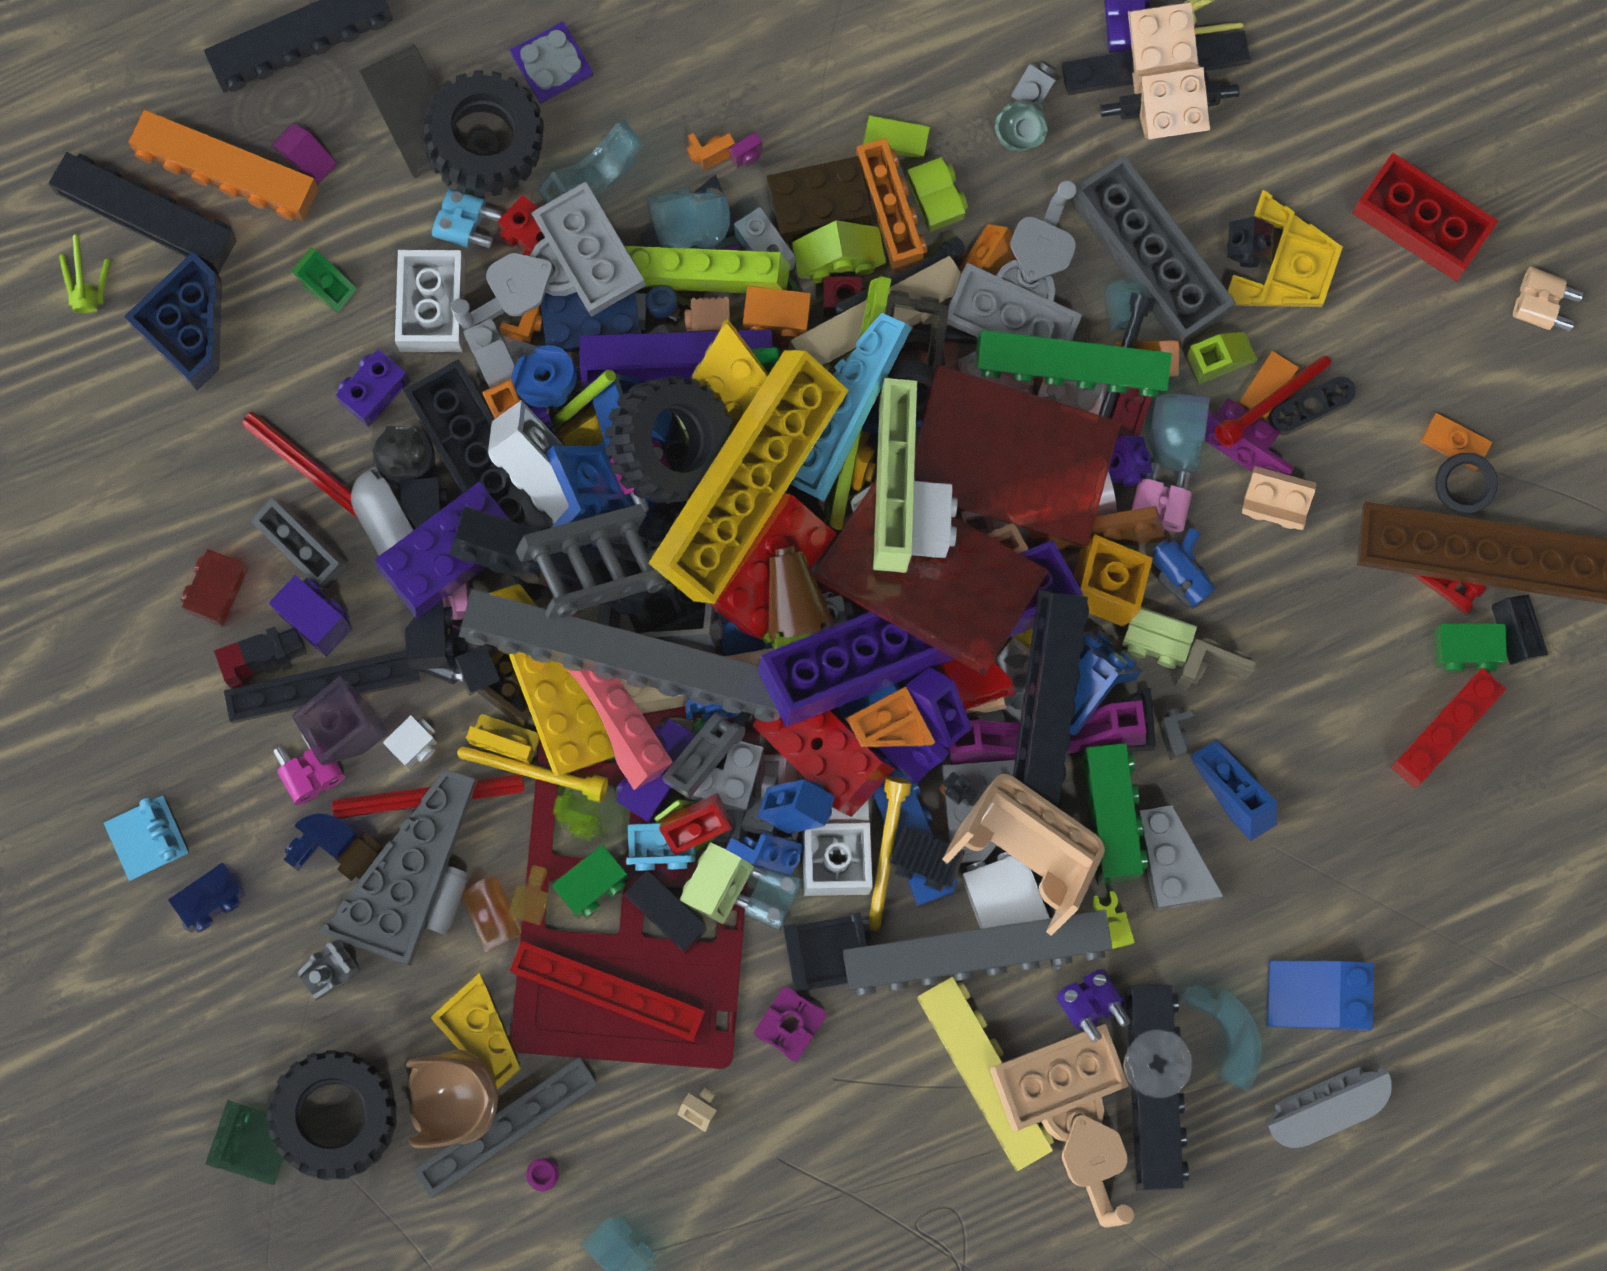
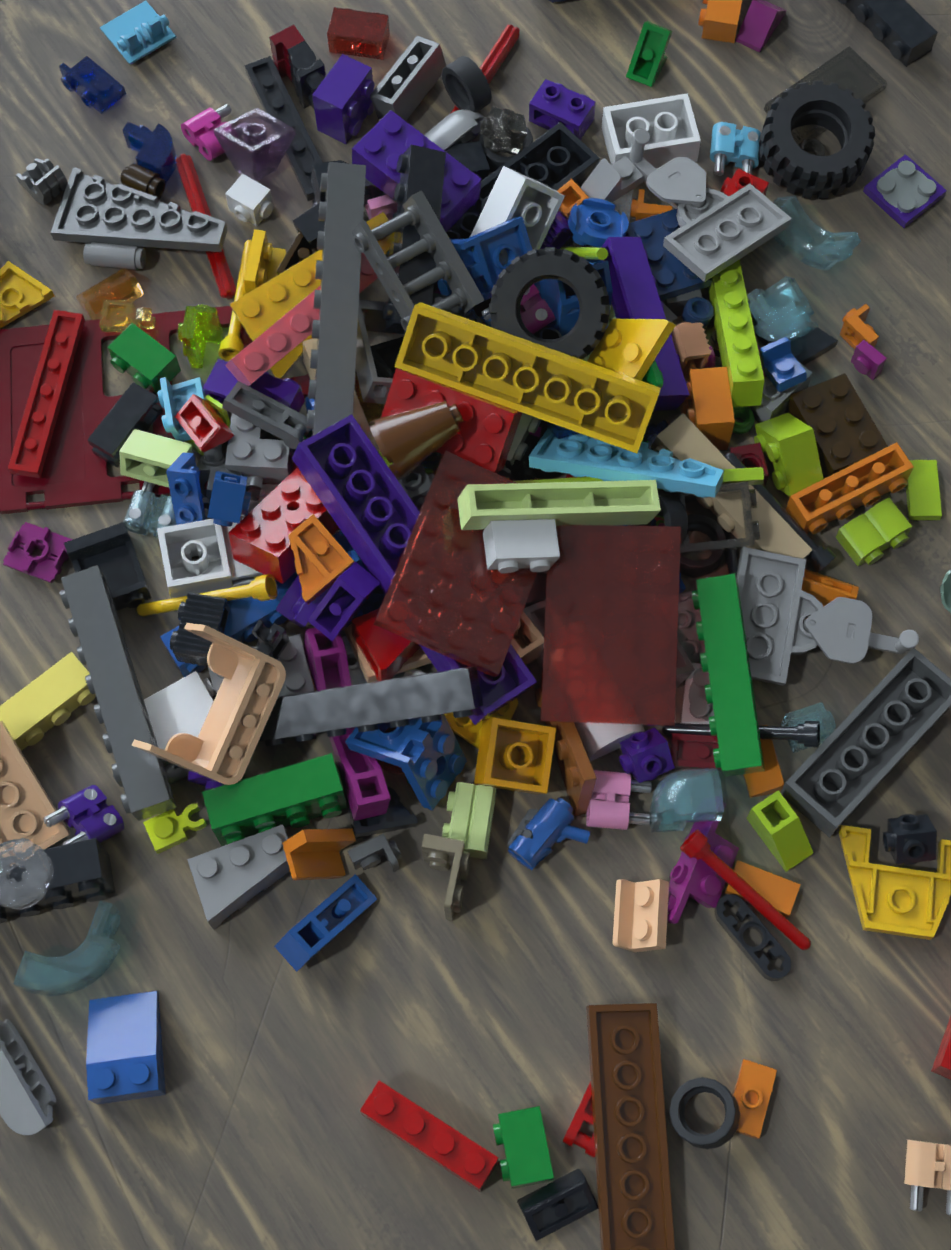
camera: 80 degrees right, 10 degrees down
(332, 479) = (466, 84): none -> black tyre
(754, 233) = (781, 365): none -> blue bracket
(1172, 785) = (316, 853): none -> orange panel

